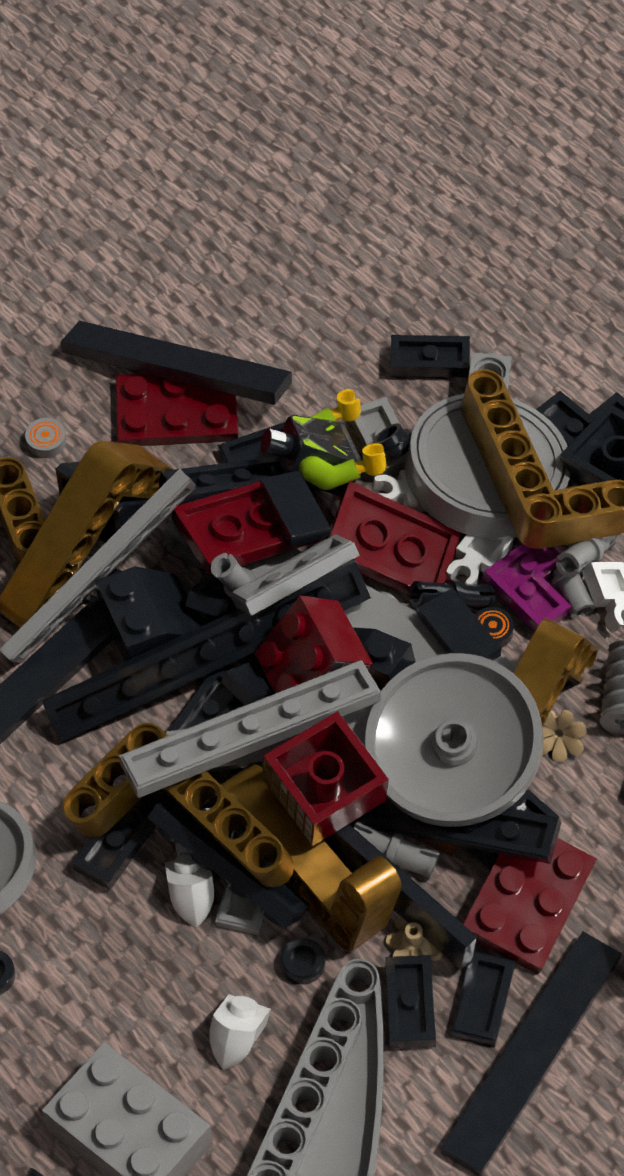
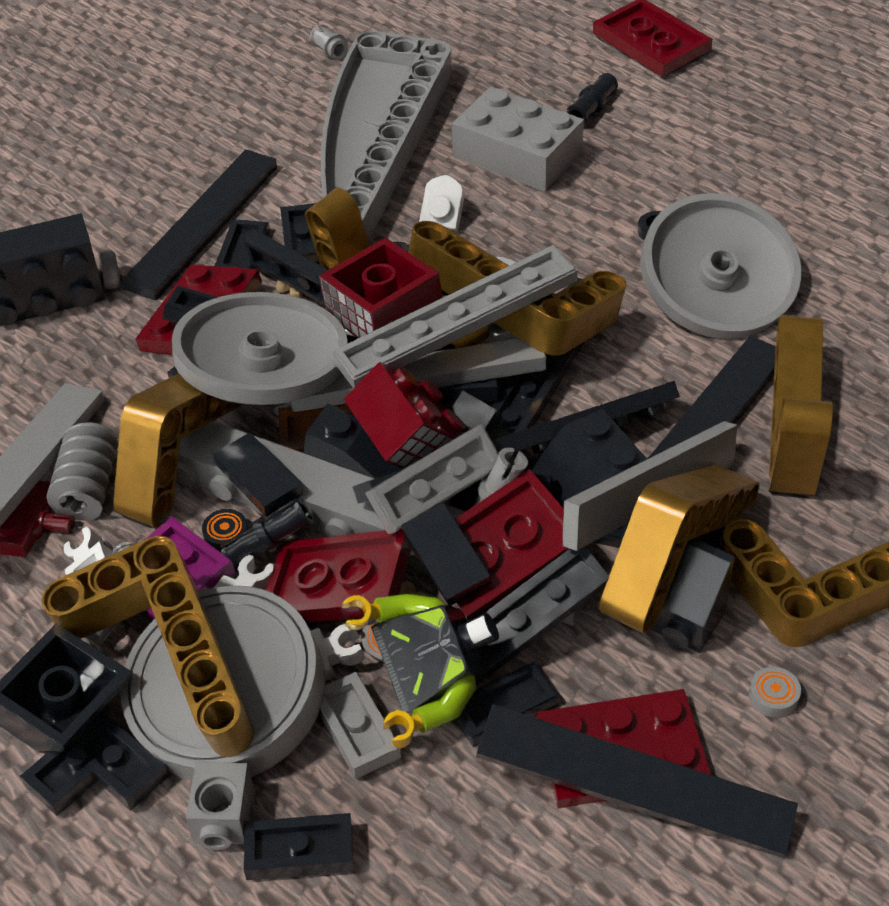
camera: 175 degrees right, 10 degrees down
(394, 440) = (350, 680): black plate -> none

